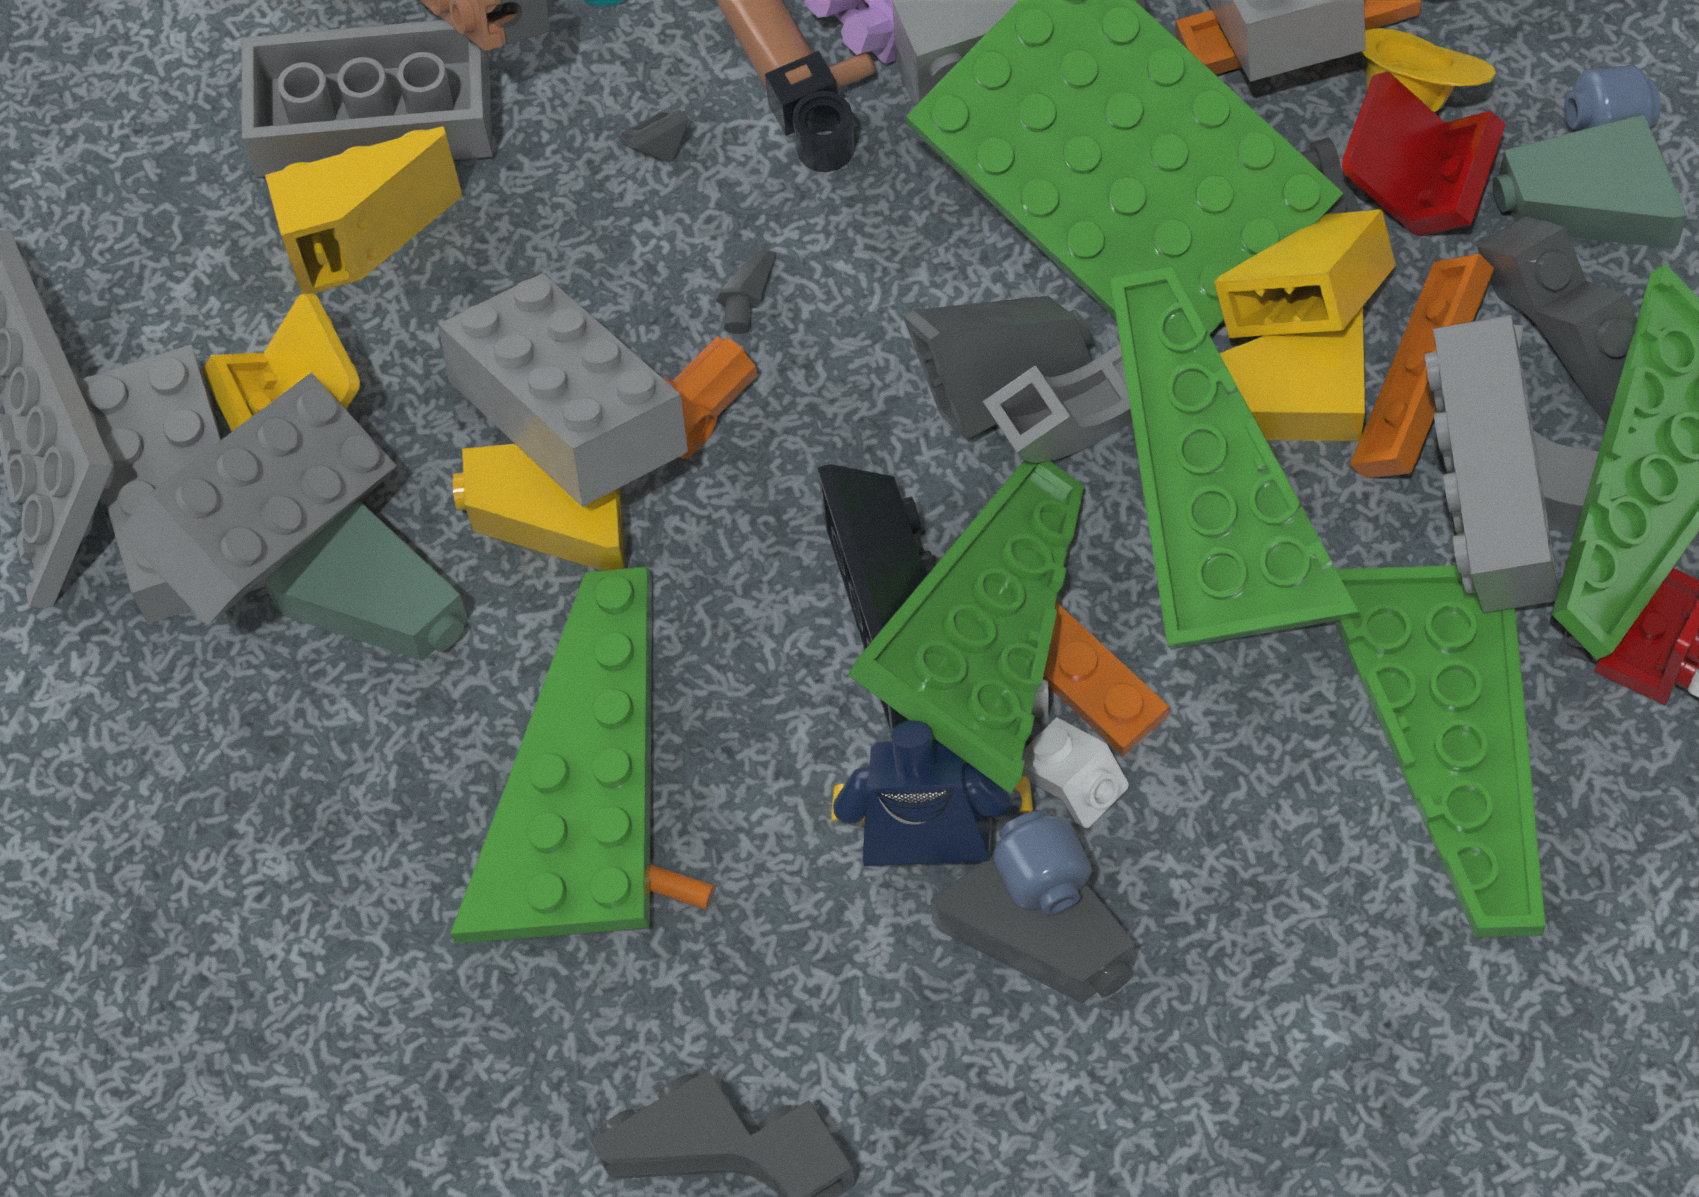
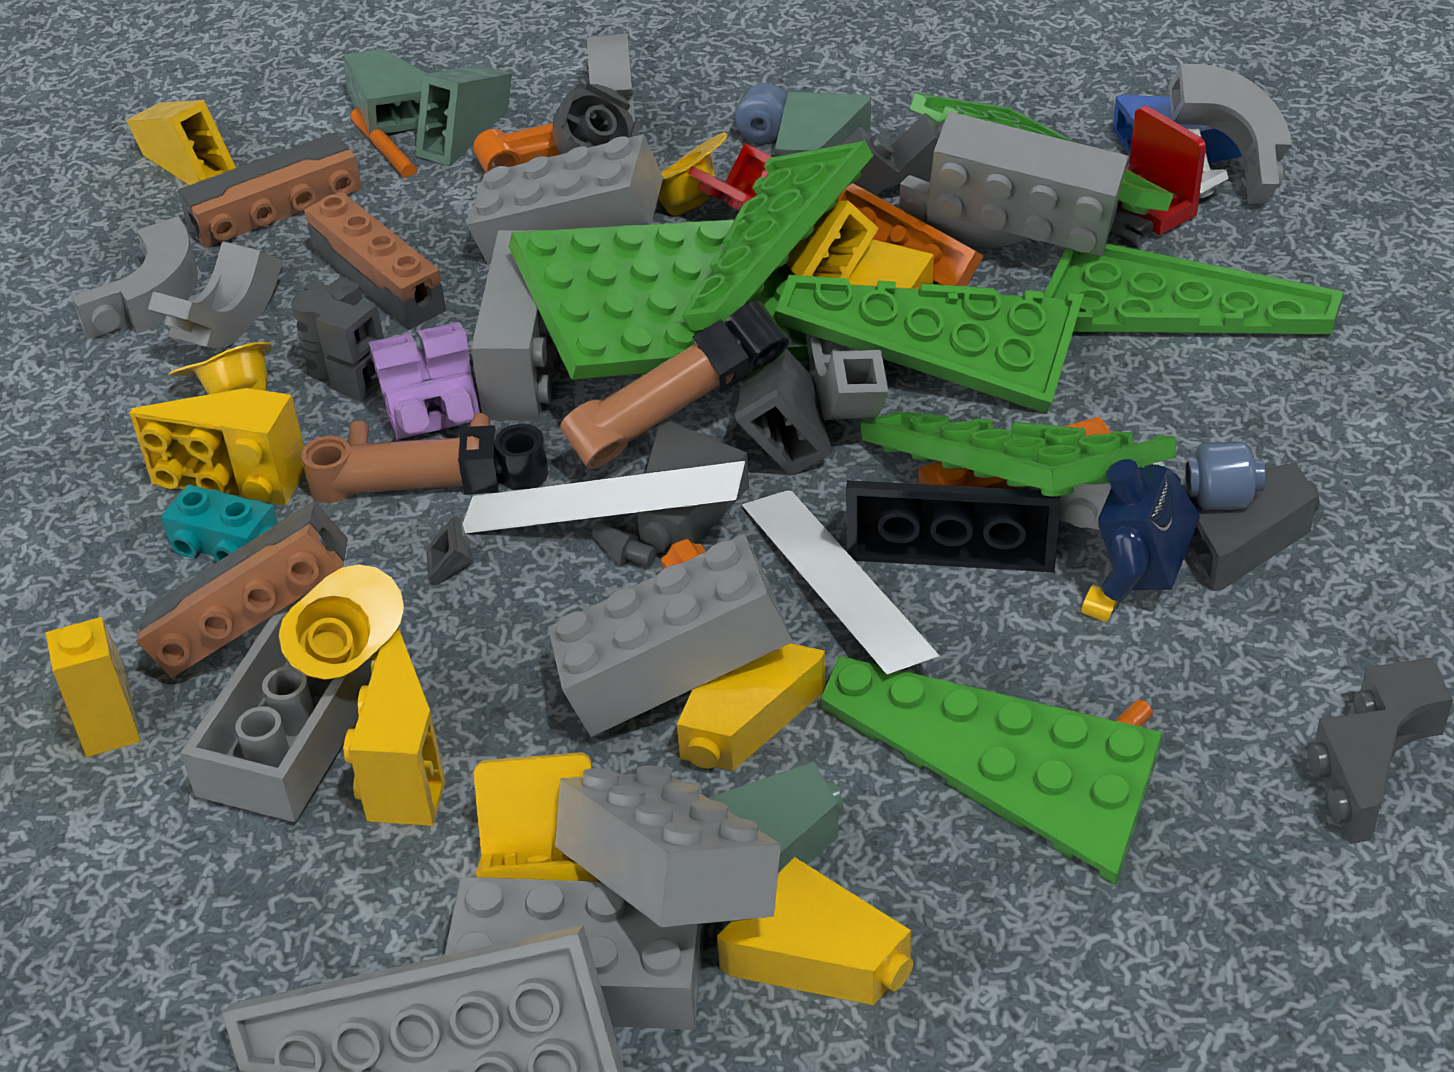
camera: 70 degrees left, 20 degrees down
(267, 686) = (819, 941): none -> yellow slope
(403, 85) = (341, 622): none -> yellow piece
(764, 525) = (840, 582): none -> white sticker
(774, 241) = (604, 497): none -> white sticker
(840, 312) = (684, 448): none -> dark grey slope
(954, 230) = (714, 361): none -> nougat piece
(1262, 210) = (771, 224): none -> bright green wing

